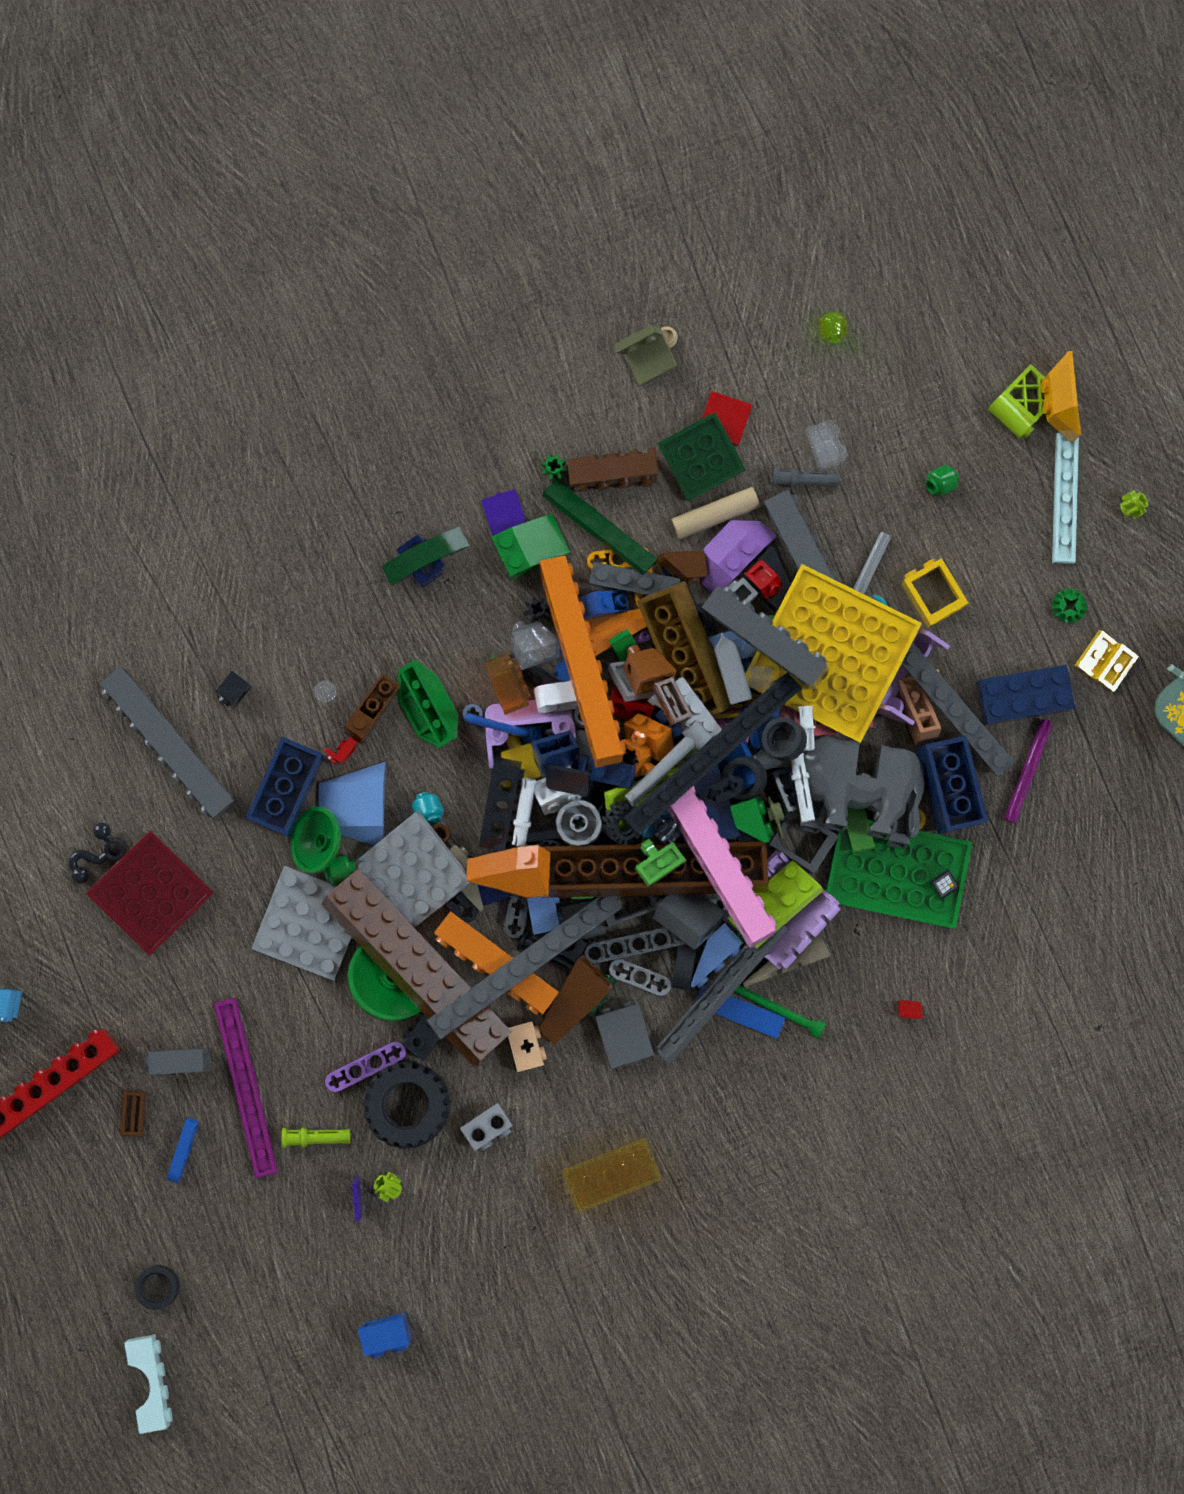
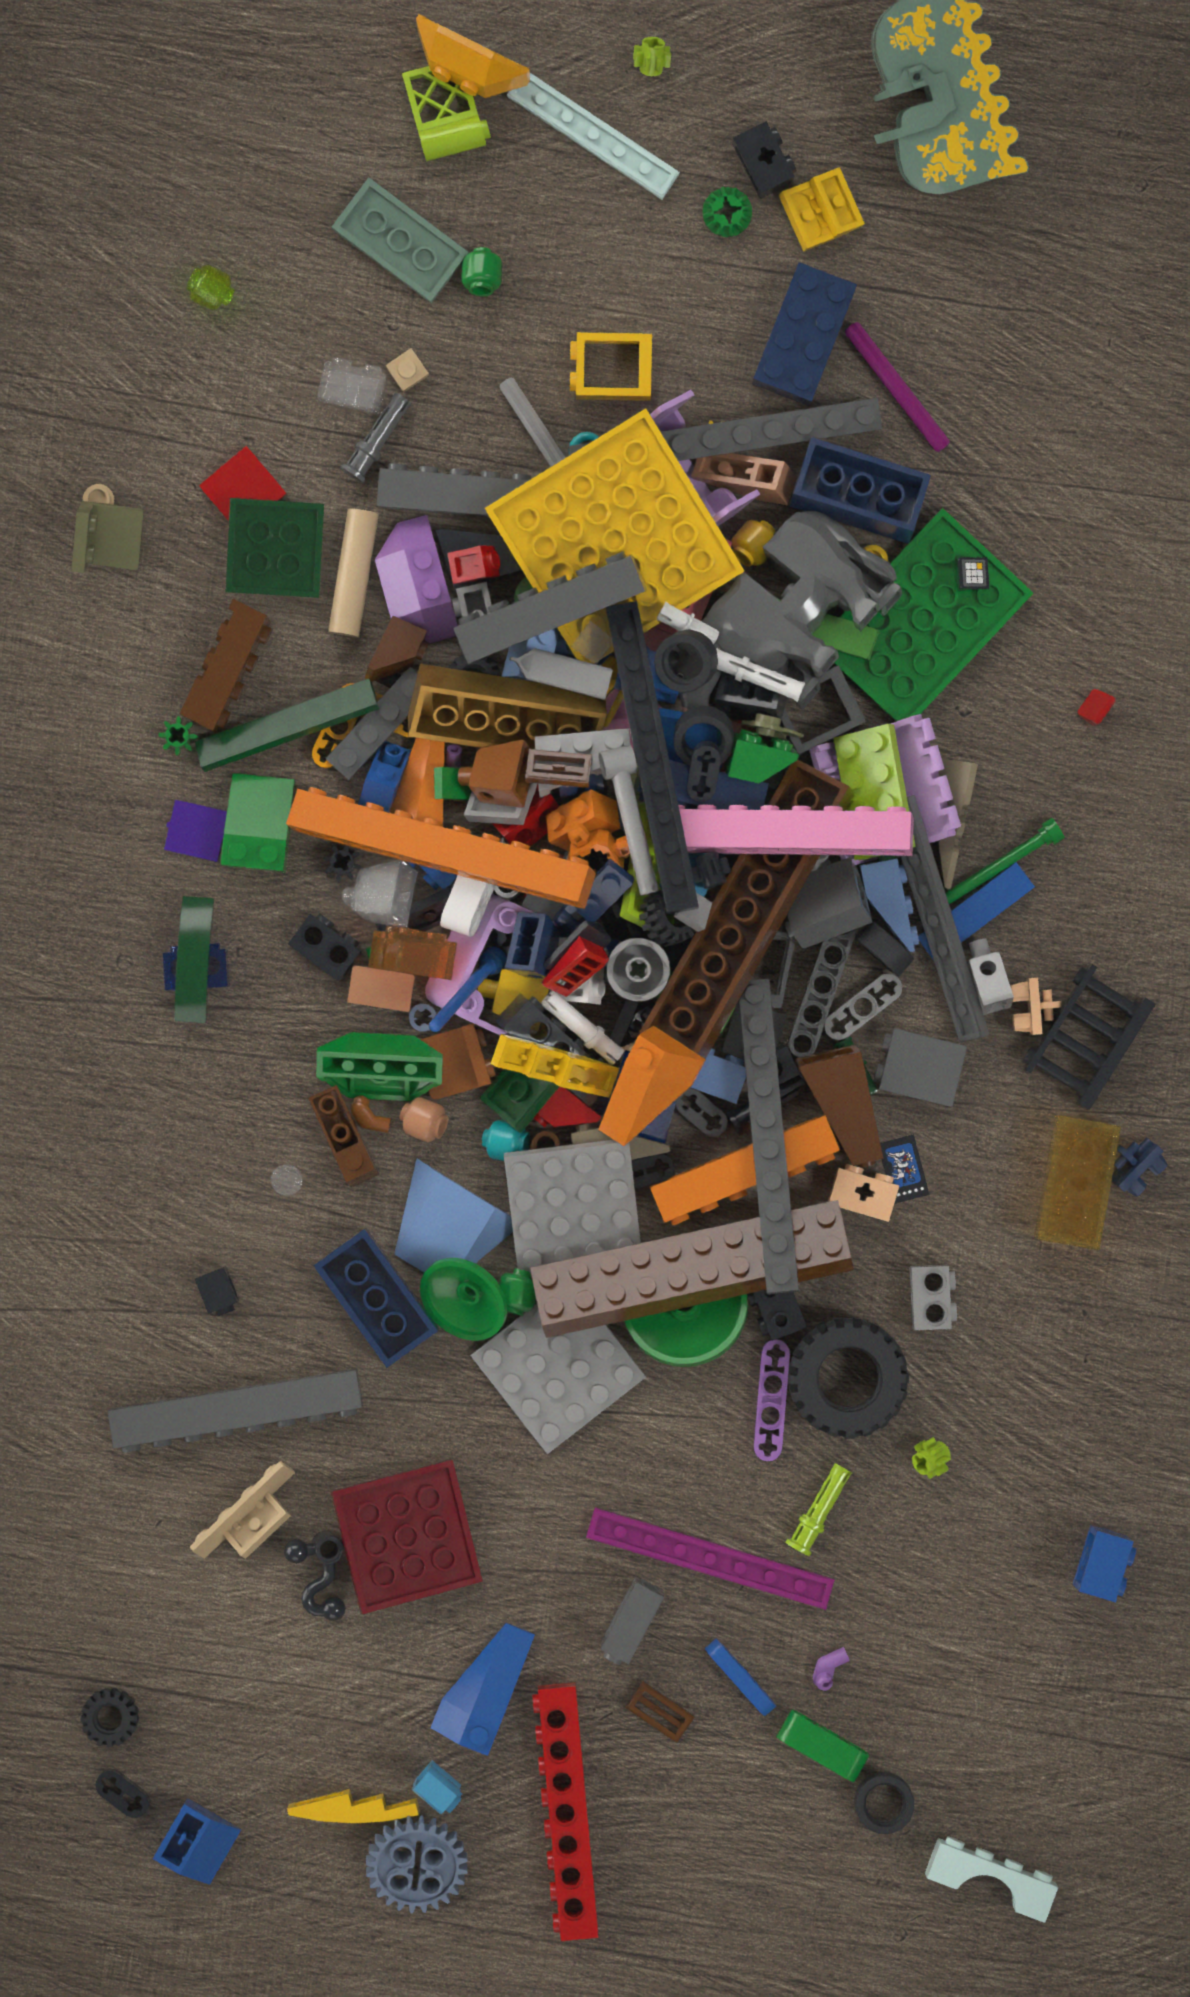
camera: 60 degrees left, 5 degrees up
(76, 997) = (478, 1700): none -> blue wedge
(105, 791) = (250, 1518): none -> tan bracket
(170, 1227) = (822, 1745): none -> green beam
(220, 1199) = (826, 1666): none -> medium lavender arm
(345, 750) = (374, 1198): red bracket -> none
(357, 1198) = (923, 1501): dark purple piece -> none
(391, 715) = (365, 1117): none -> dark orange arm
(411, 751) = (424, 1119): none -> nougat head
(459, 753) = (462, 1061): none -> dark orange bracket
(462, 798) = (517, 1097): none -> dark green tile
(468, 829) = (564, 1110): none -> red slope
(474, 629) = (321, 953): none -> black brick
(474, 678) = (381, 988): none -> nougat panel
(489, 808) = (555, 1065): none -> yellow slope
(558, 1061) = (904, 1164): none -> black sticker
(569, 780) = (582, 948): none -> red slope
(631, 839) = (696, 918): none -> light grey tile
(644, 1202) = (1134, 1162): none -> dark blue hips
(658, 862) = (745, 902): bright green plate -> none
(694, 1146) = (1119, 1037): none -> black fence
(697, 1049) = (994, 989): none -> light grey torso
(710, 1074) = (1029, 992): none -> light nougat hips
(856, 472) = (407, 370): none -> tan plate
(880, 736) = (749, 542): none -> yellow head
(930, 421) = (399, 240): none -> sand green plate
(1104, 615) = (764, 177): none -> black brick

